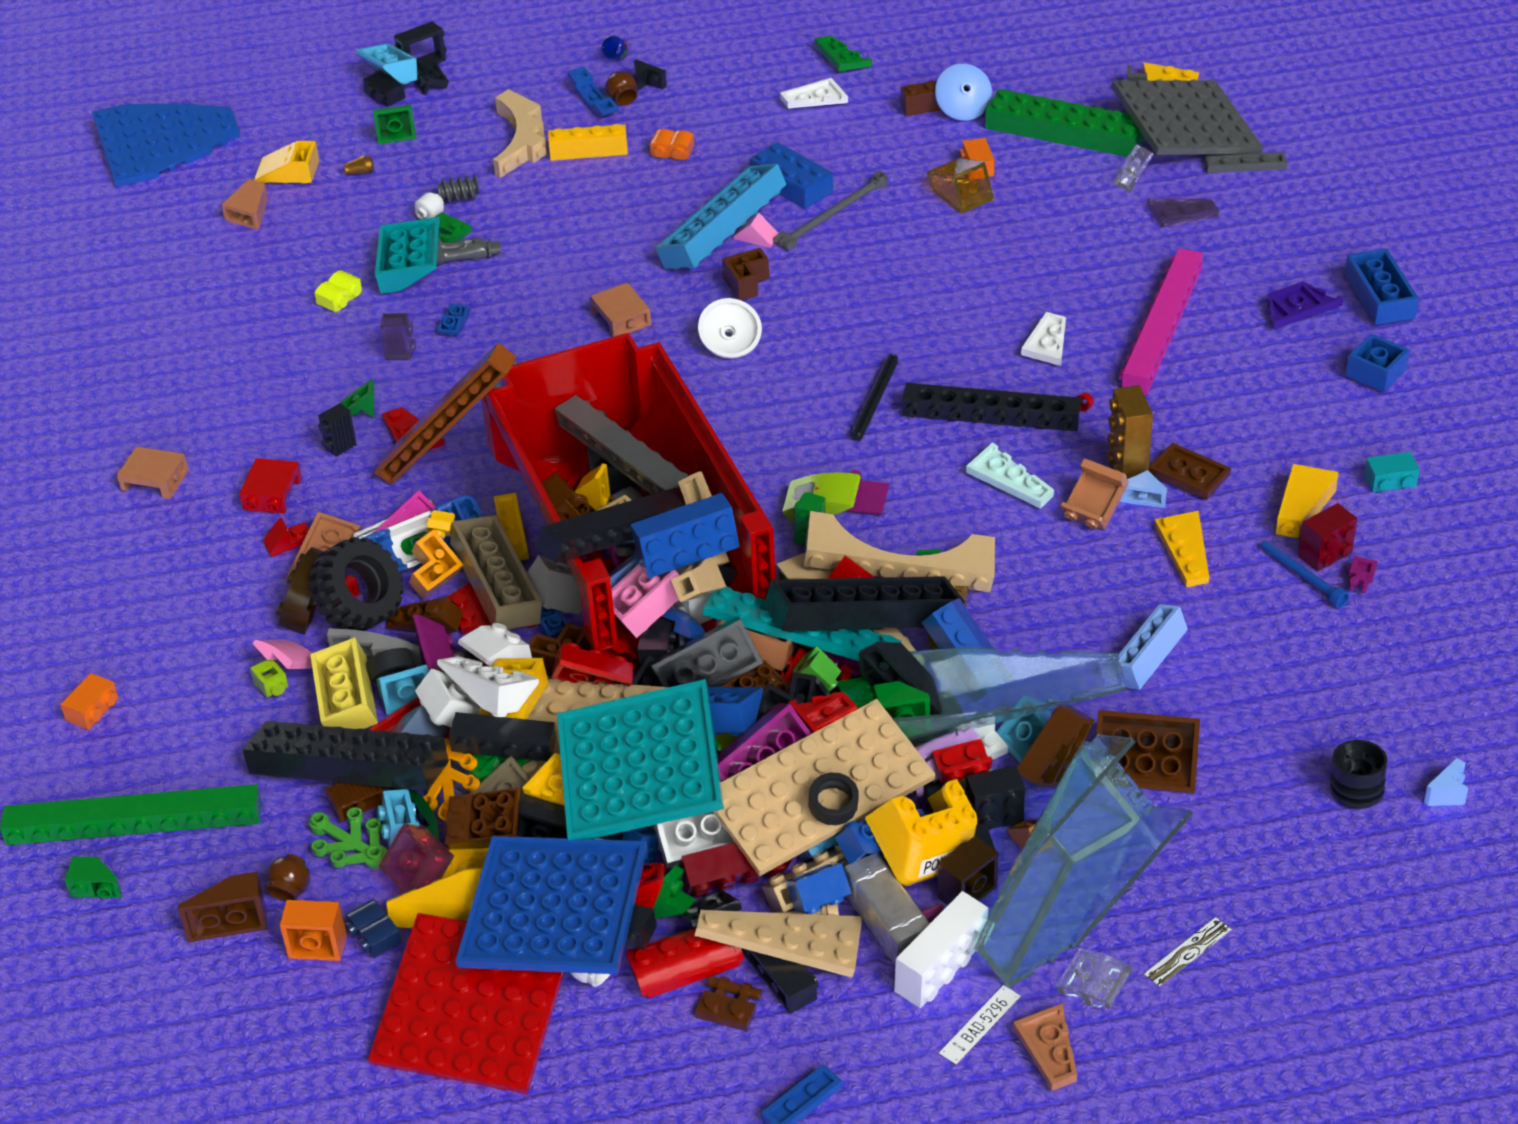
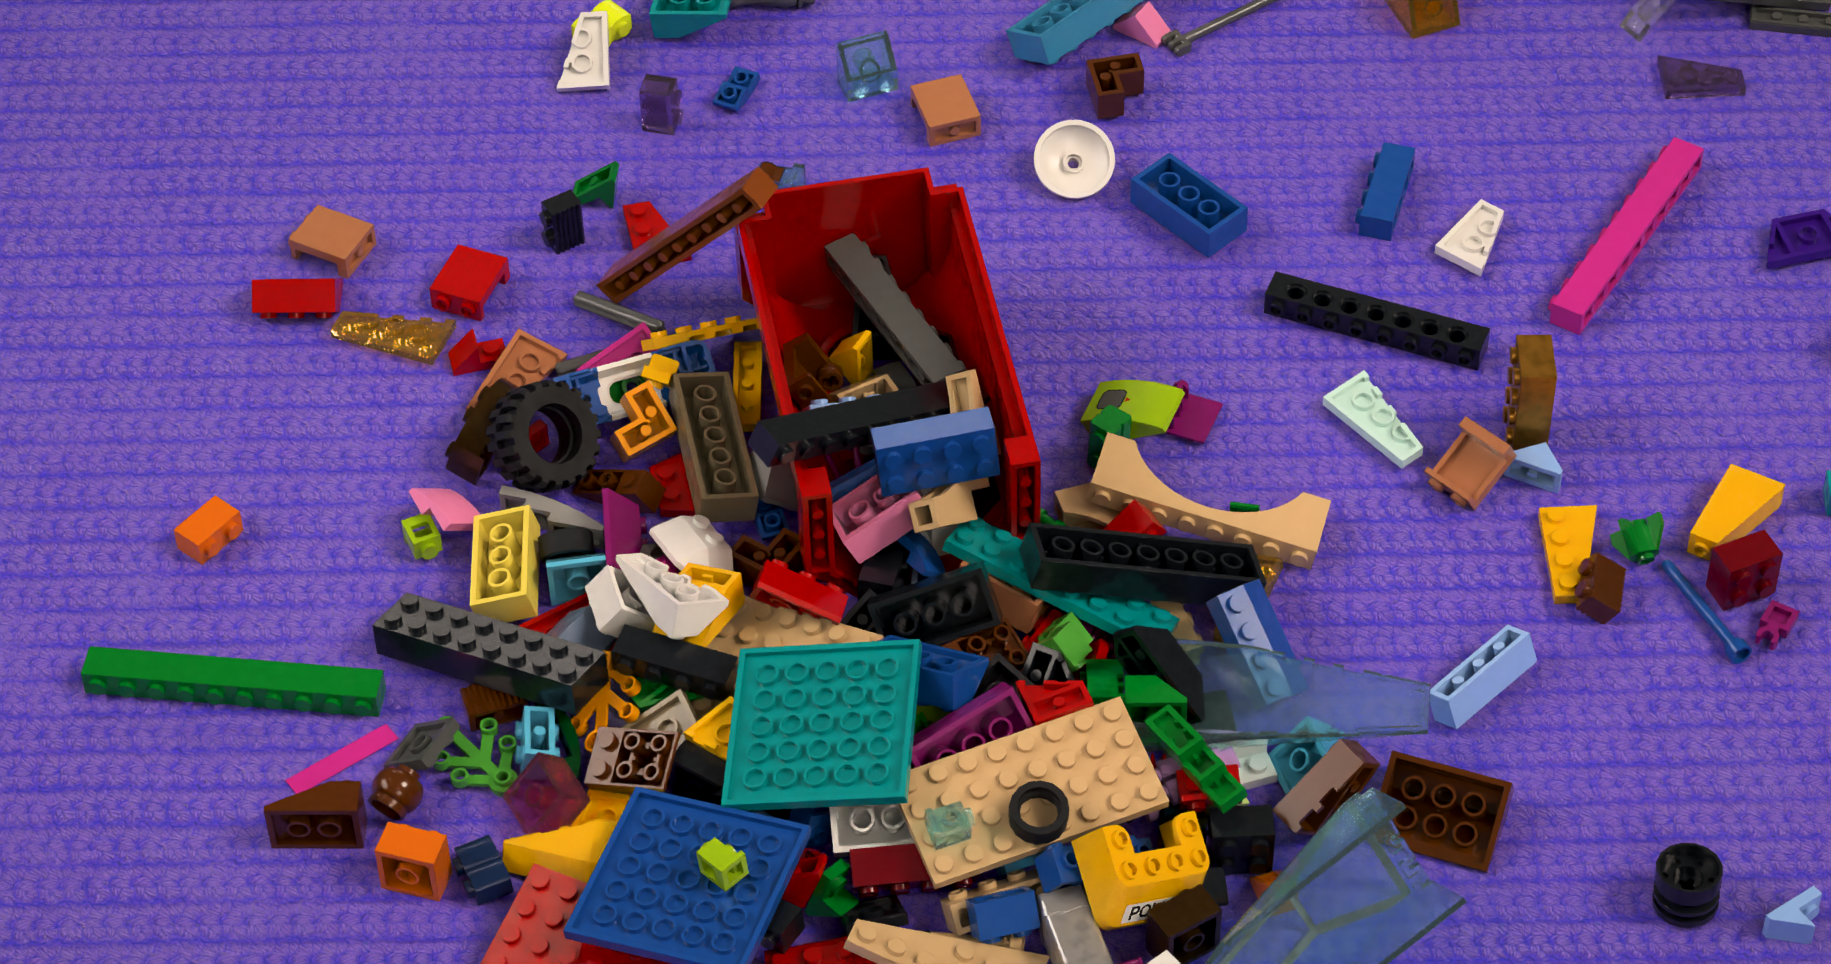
camera: 10 degrees right, 5 degrees up
(91, 879) = (174, 752): green slope -> none
(131, 516) = (296, 297): none -> red slope
(216, 533) = (395, 335): none -> clear yellow wing
(236, 860) = (342, 759): none -> dark pink sticker
(304, 836) = (424, 744): none -> dark grey plate
(333, 312) = (588, 57): none -> white wing
(394, 489) = (616, 312): none -> dark grey axle
(471, 489) = (707, 331): none -> yellow wing
(552, 287) = (866, 66): none -> clear light blue slope
(580, 882) = (722, 863): none -> lime brick
(757, 824) = (948, 833): none -> clear light blue brick
(826, 347) = (1188, 205): none -> blue brick
(874, 397) = (1234, 282): black axle -> none
(948, 738) = (1196, 758): none -> green slope
(972, 317) = (1386, 191): none -> blue brick
(1090, 401) = (1502, 331): red hinge -> none
(1189, 471) = (1601, 449): reddish brown plate -> none
(1221, 568) = (1600, 588): none -> reddish brown brick
(1239, 529) = (1638, 539): none -> green brick

